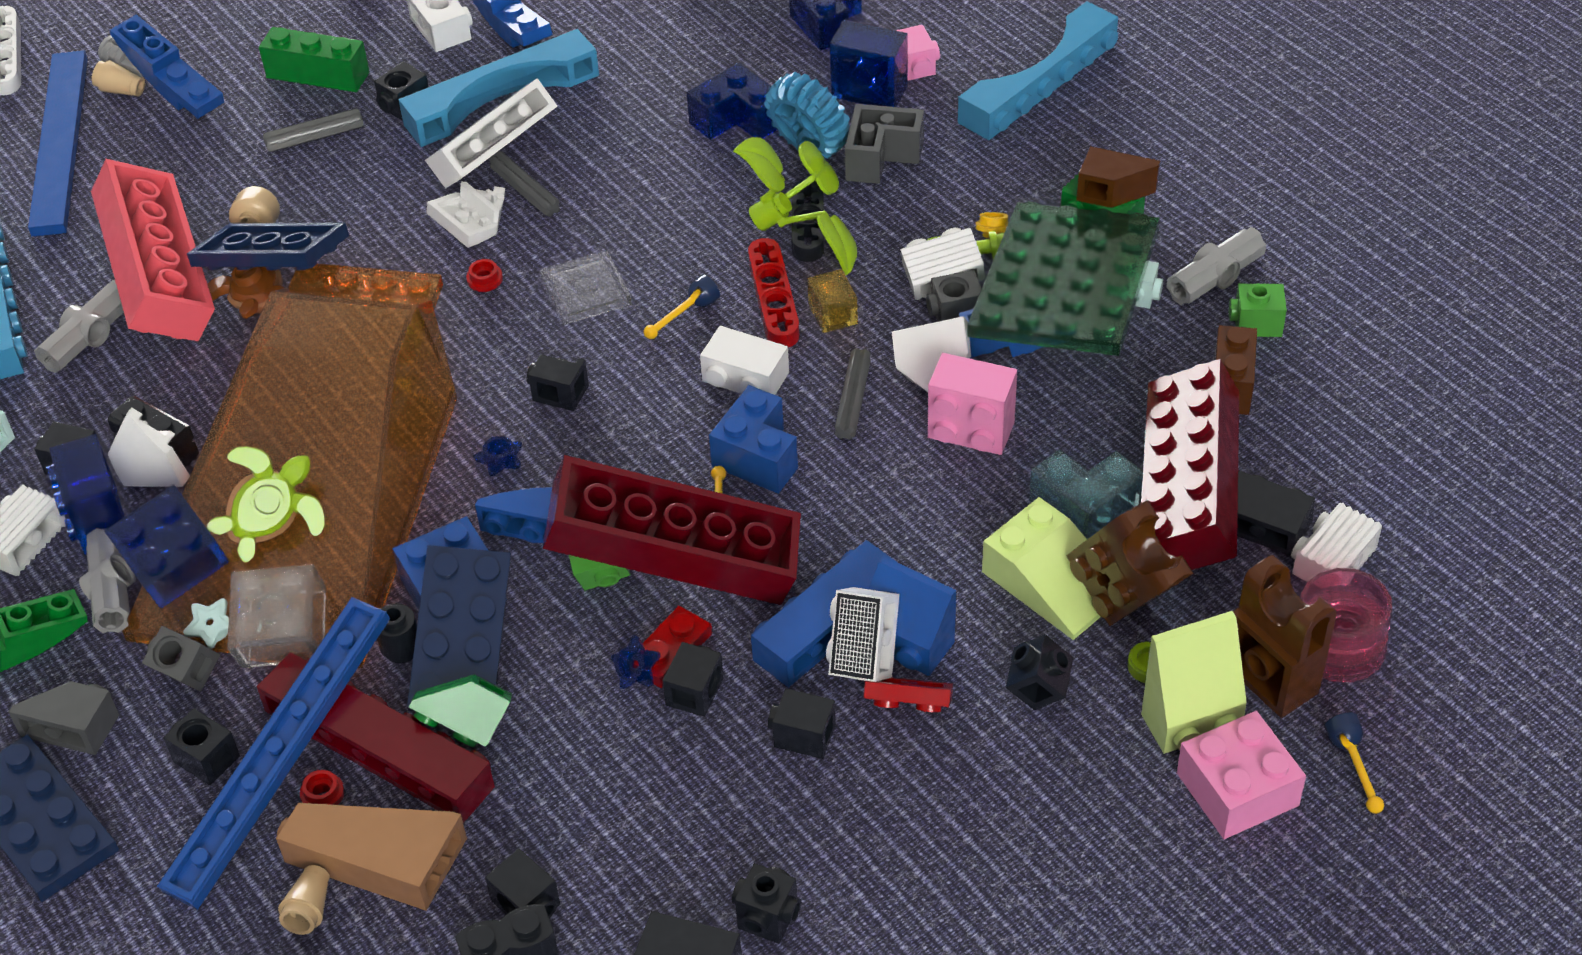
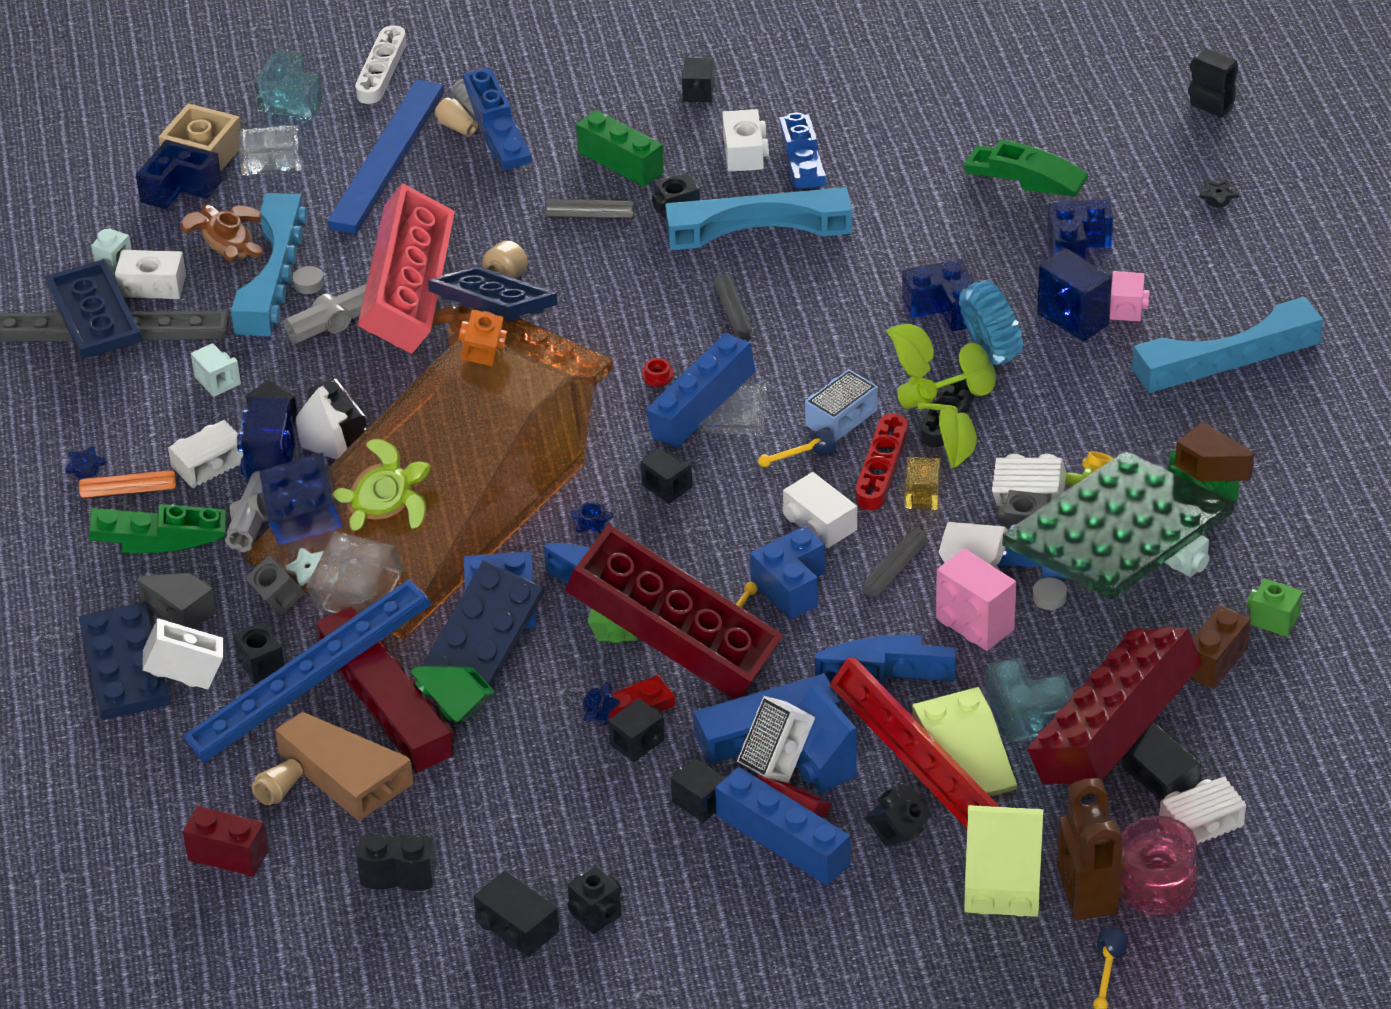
camera: 25 degrees right, 5 degrees down
(37, 298) = (308, 280): none -> light grey tile
(112, 785) = (182, 654): none -> white brick
(297, 294) = (482, 337): none -> orange brick
(322, 781) = (328, 710): red plate -> none
(399, 634) = (435, 618): black brick -> none
(469, 215) = (676, 319): white slope -> none
(491, 133) = (726, 255): white brick -> none
(521, 883) = (430, 821): black brick -> none
(547, 279) = (700, 390): none -> blue brick
(699, 246) = (841, 404): none -> brick
(881, 136) = (1042, 359): dark grey brick -> none
(901, 504) = (891, 657): none -> blue slope
(922, 730) = (783, 826): none -> blue brick
(1020, 590) = (909, 740): none -> red plate
(1031, 371) = (1049, 593): none -> light grey tile
(1126, 564) = (1005, 755): reddish brown brick -> none
(1216, 266) = (1265, 559): light grey piece -> none
(1240, 774) = (1004, 942): bright pink brick -> none

